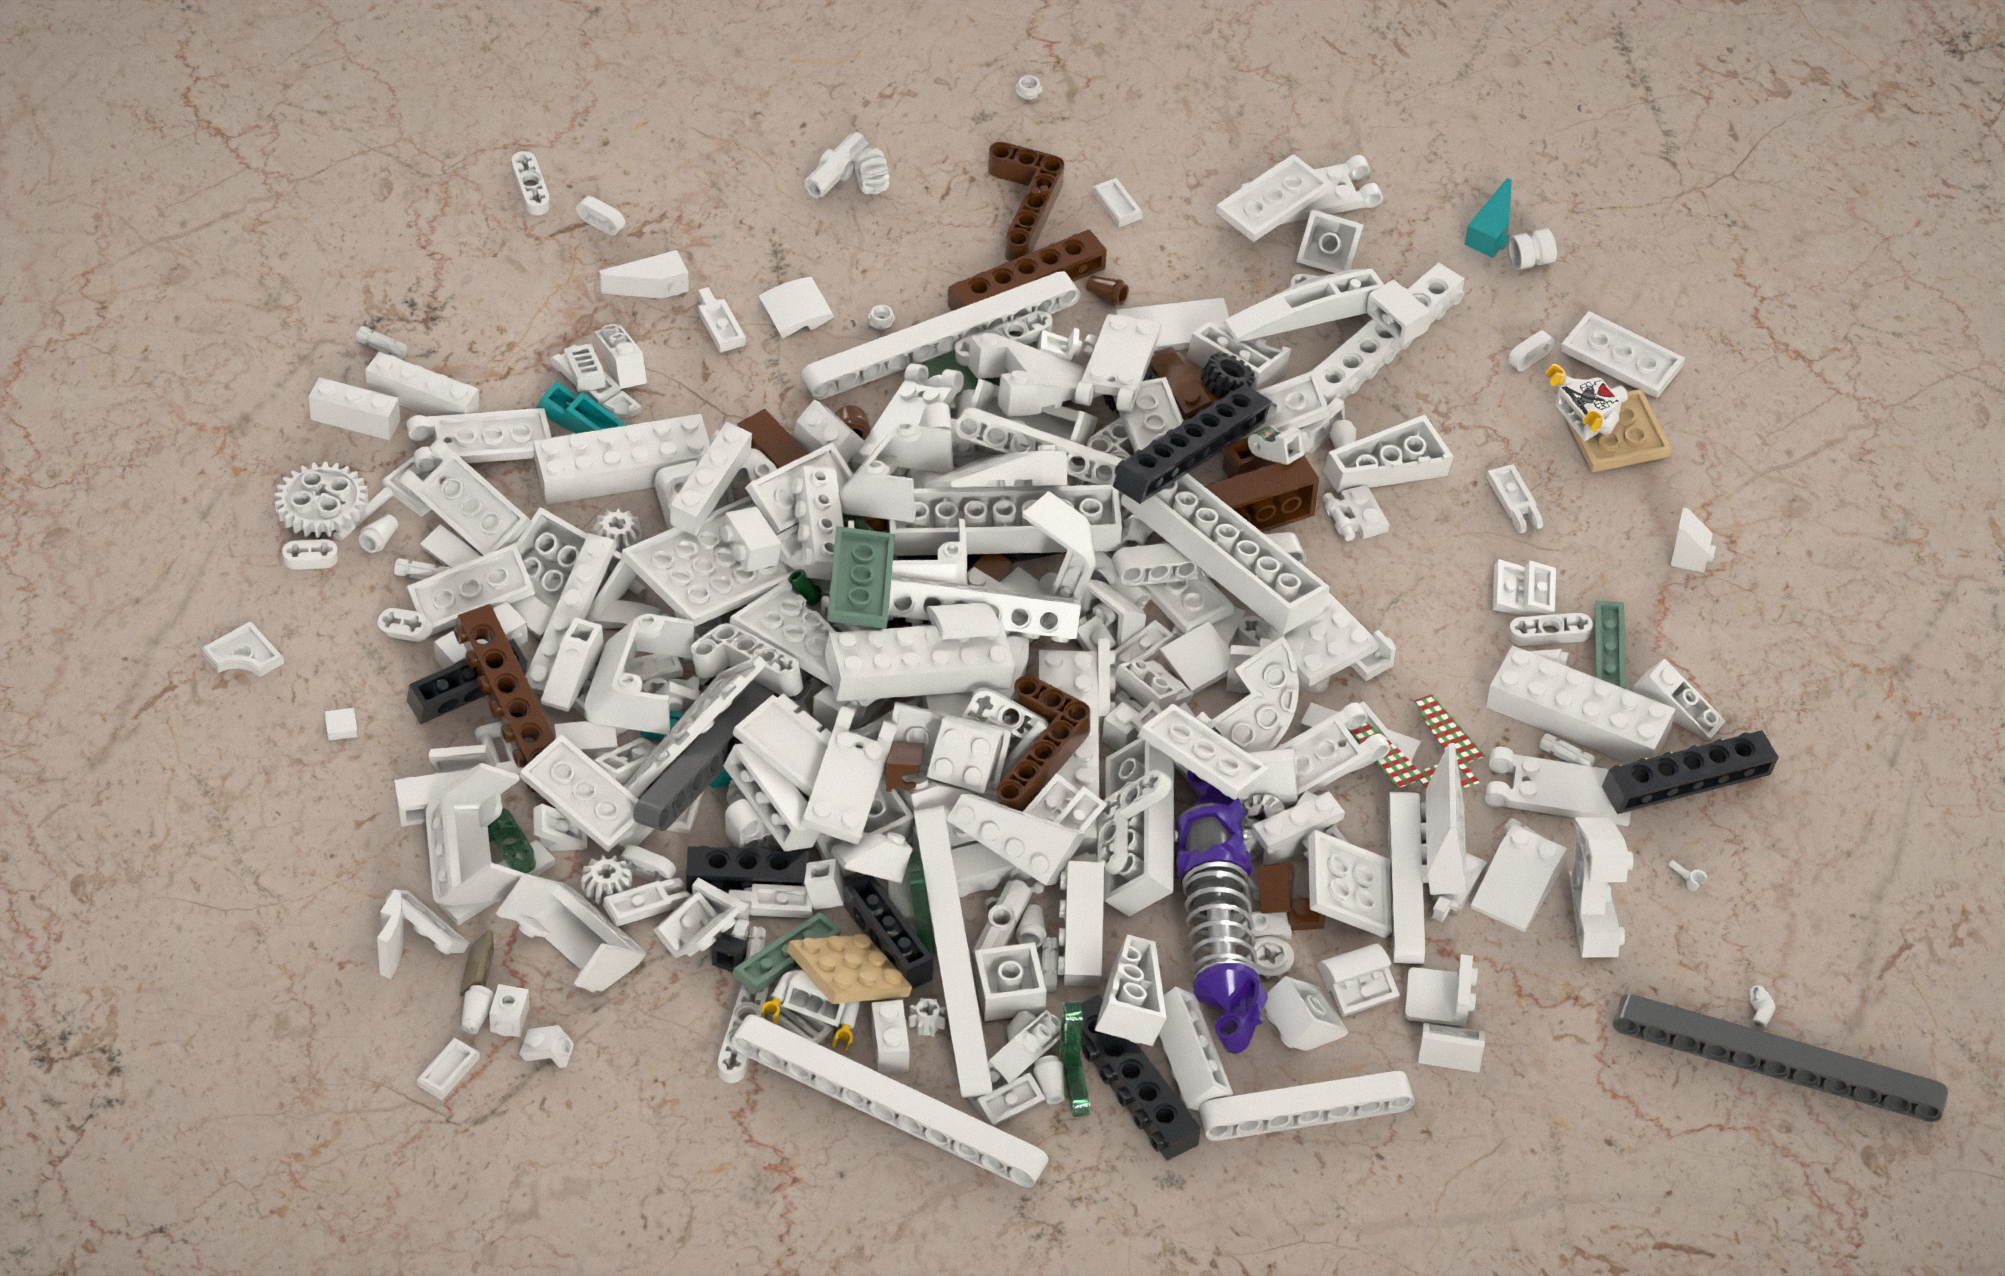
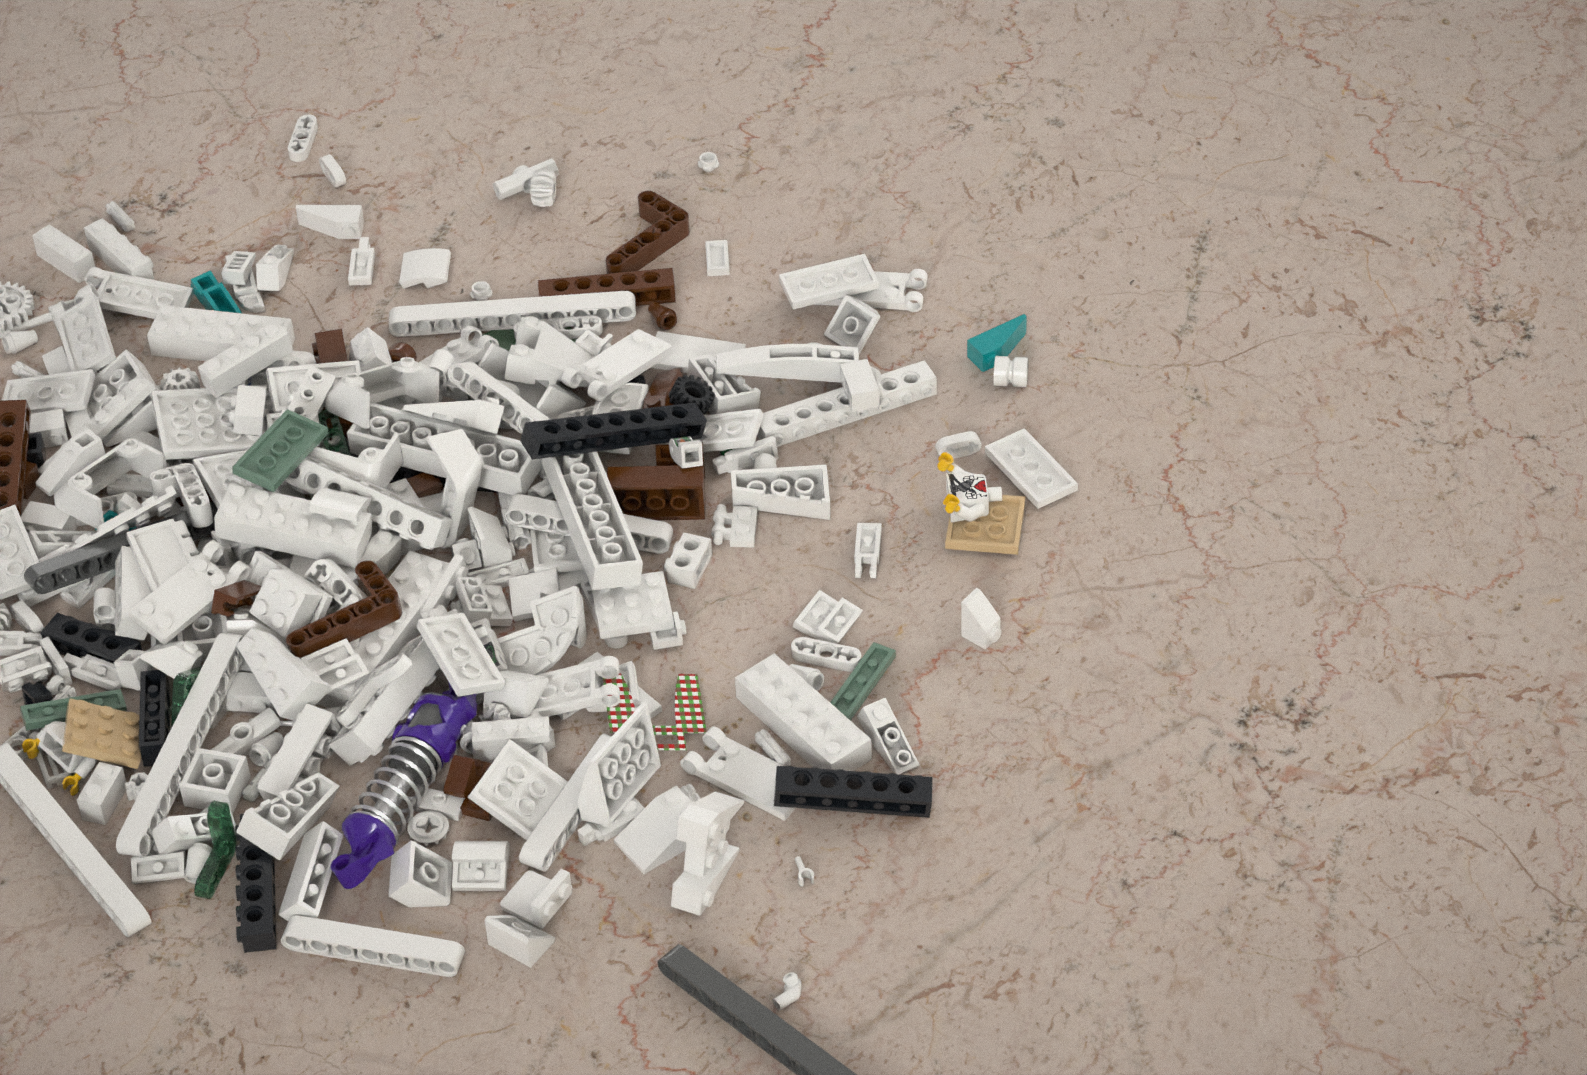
camera: 30 degrees right, 5 degrees down
(1338, 566) = (688, 560): none -> white brick

